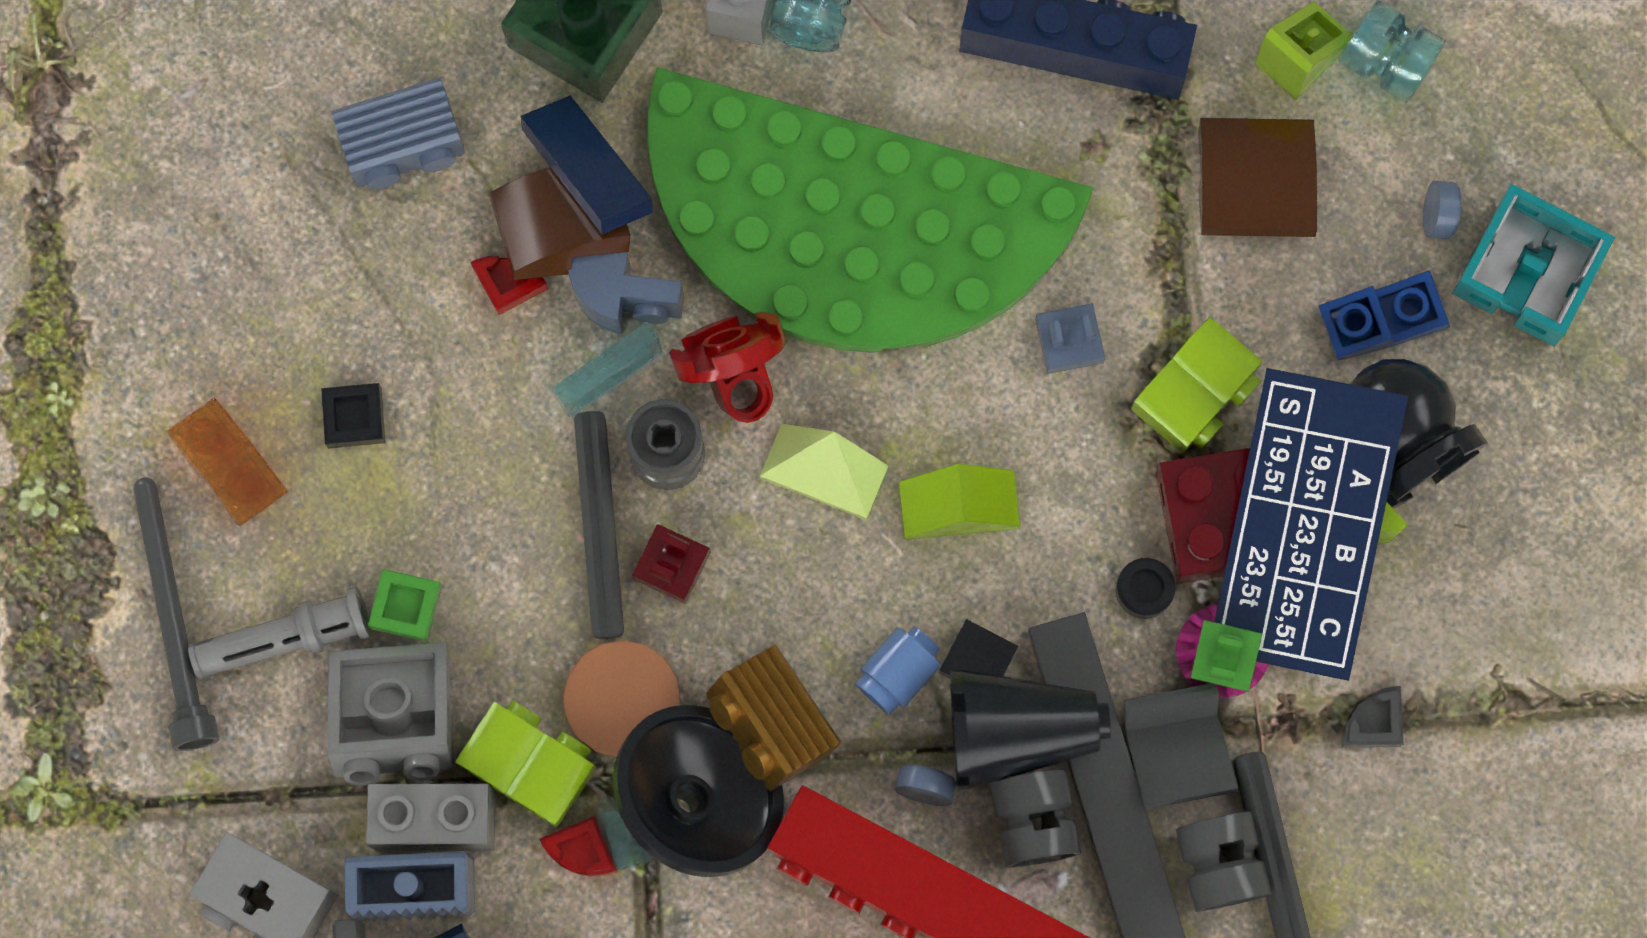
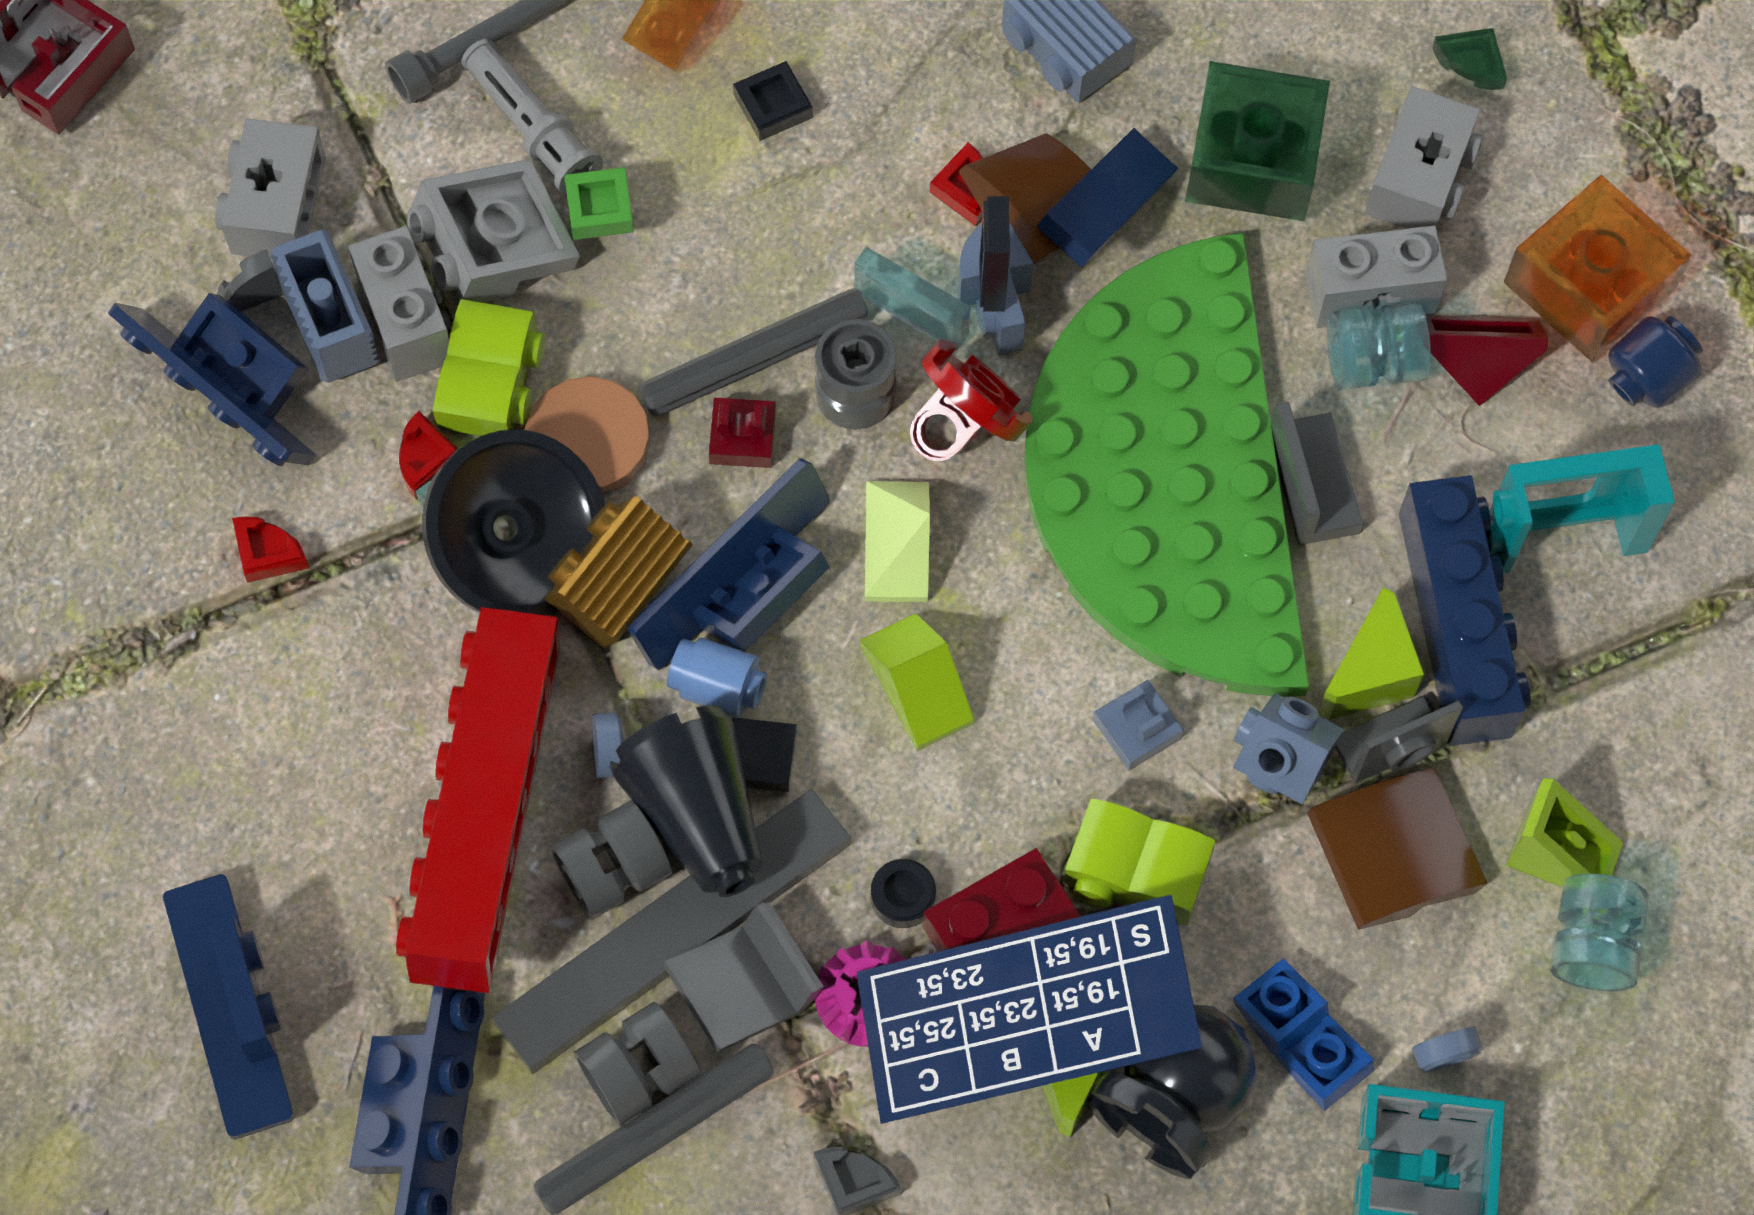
camera: 65 degrees right, 10 degrees down
(628, 278) = (994, 253): none -> black tile
(818, 608) = (744, 576): none -> dark blue bracket
(905, 103) = (1314, 476): none -> dark grey panel
(1092, 123) = (1378, 665): none -> lime slope
(1146, 226) = (1285, 746): none -> sand blue brick
(1166, 138) = (1396, 738): none -> dark grey piece
(1226, 655) = (856, 985): bright green tile -> none

